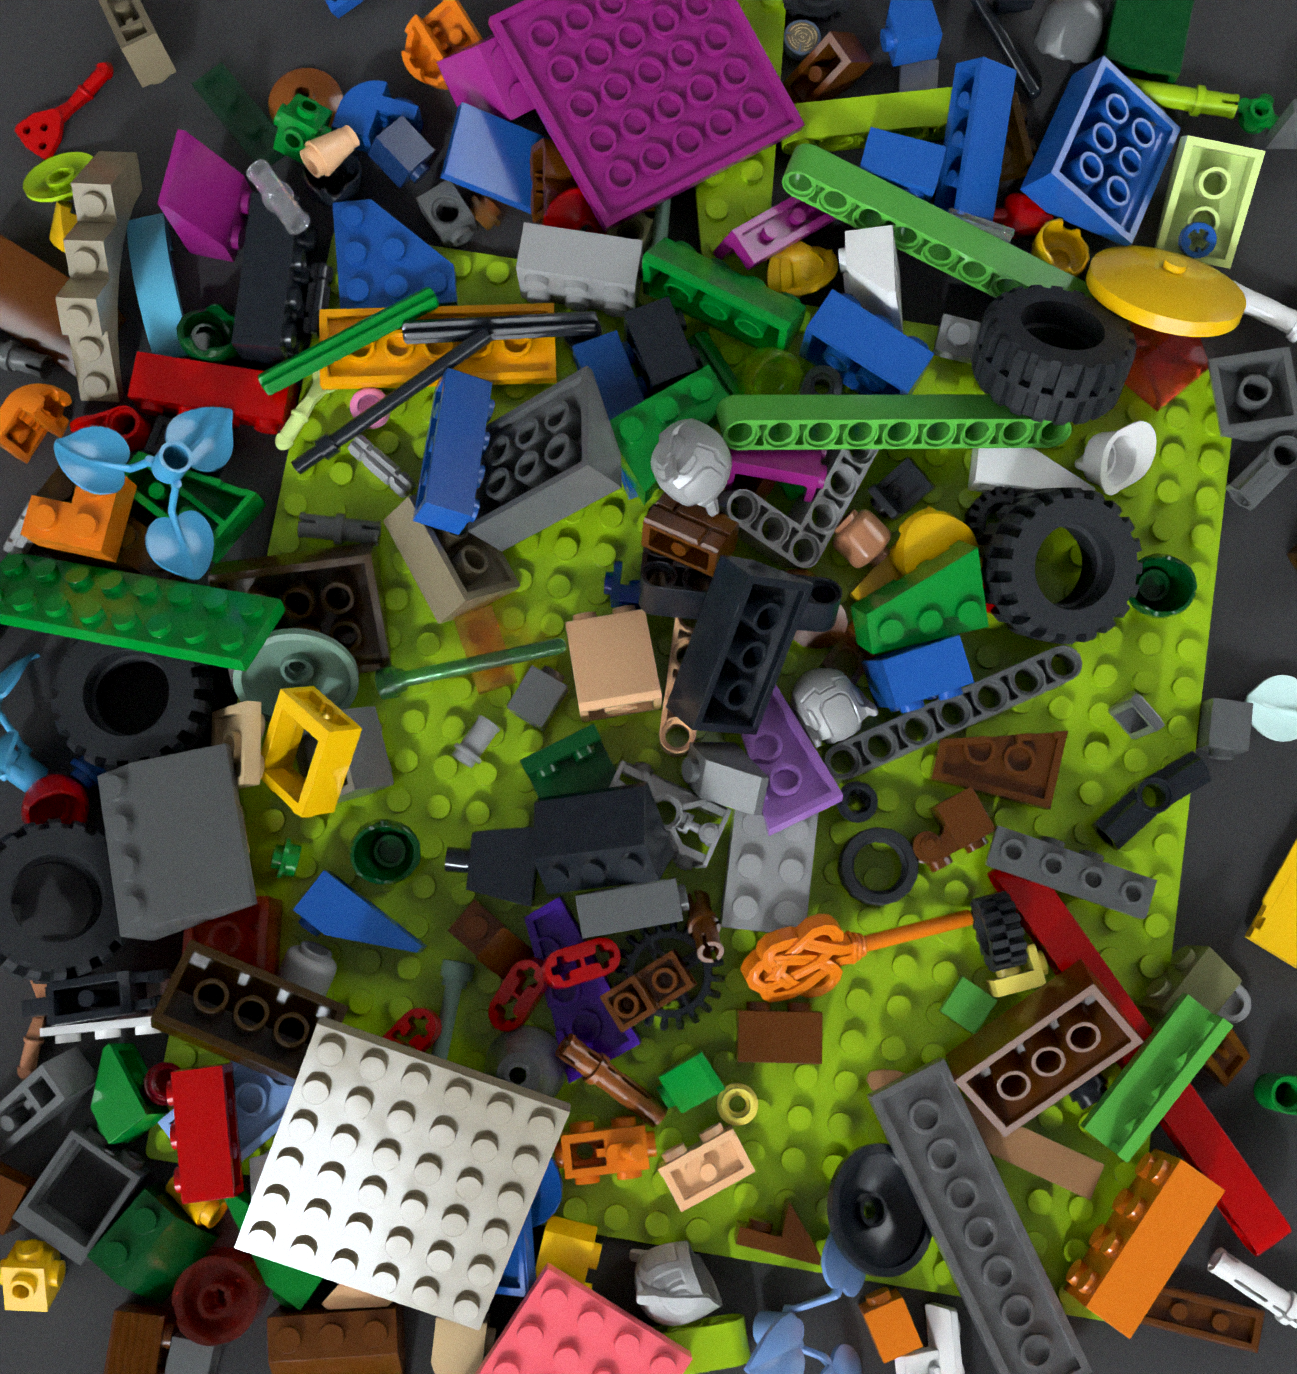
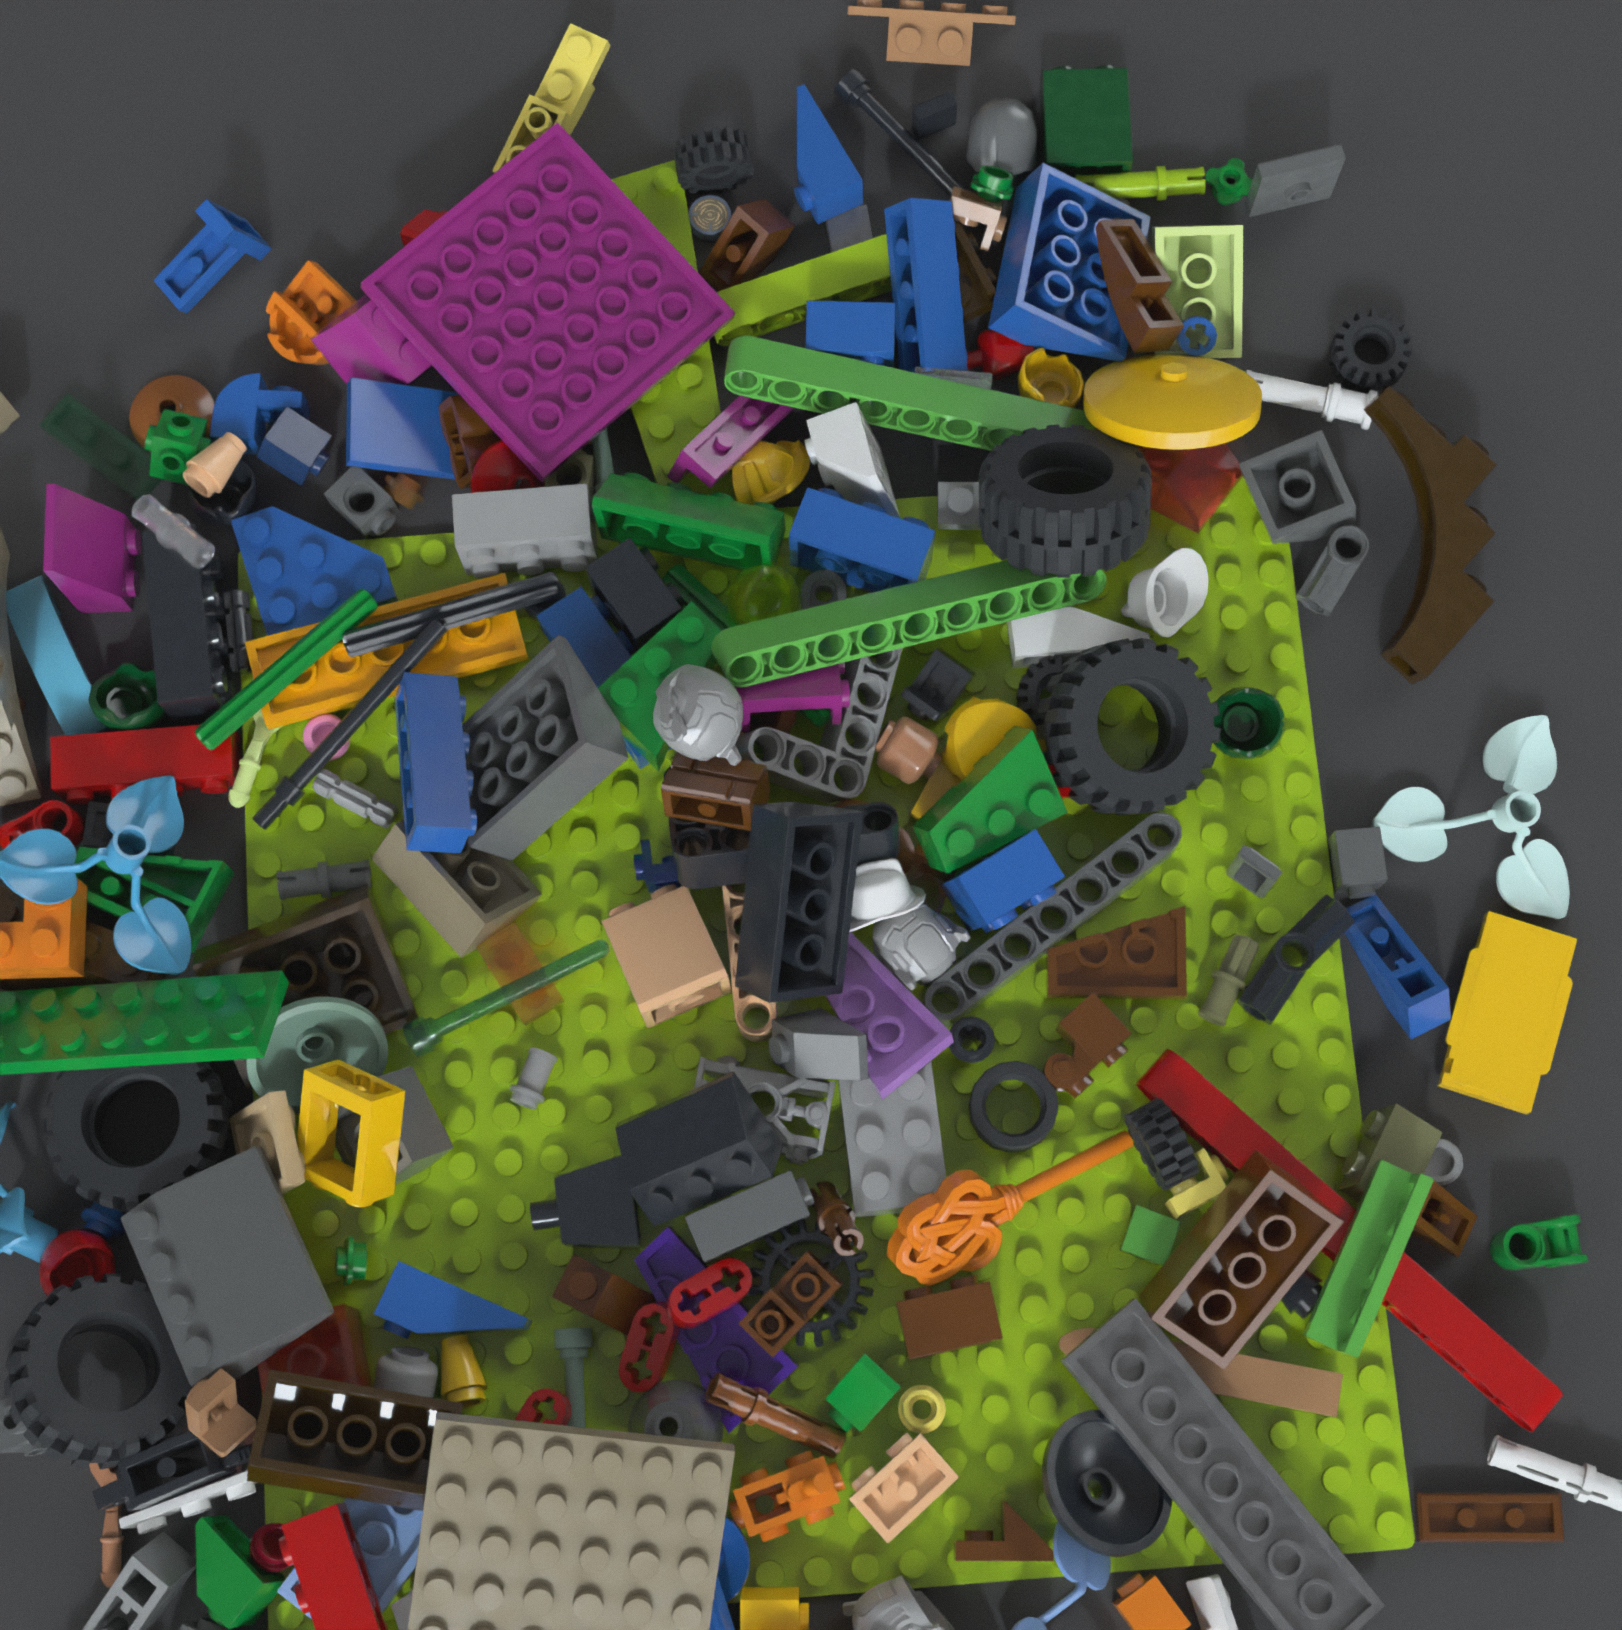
camera: 10 degrees left, 5 degrees down
(137, 965) = (216, 1415): none -> medium nougat bracket
(355, 976) = (461, 1373): none -> yellow cone
(384, 851) = (461, 1224): dark green hair -> none
(538, 696) = (592, 1011): dark grey brick -> none
(570, 765) = (644, 1076): dark green bracket -> none
(812, 658) = (882, 893): none -> white piece
(1030, 83) = (971, 209): none -> bracket
(1053, 65) = (993, 183): none -> green plate
(1071, 872) = (1223, 1059): dark grey bracket -> none
(1089, 803) = (1229, 980): none -> olive axle
(1142, 1240) = (1399, 1443): orange brick -> none
(1157, 184) = (1137, 286): none -> reddish brown slope
(1237, 830) = (1398, 968): none -> blue slope

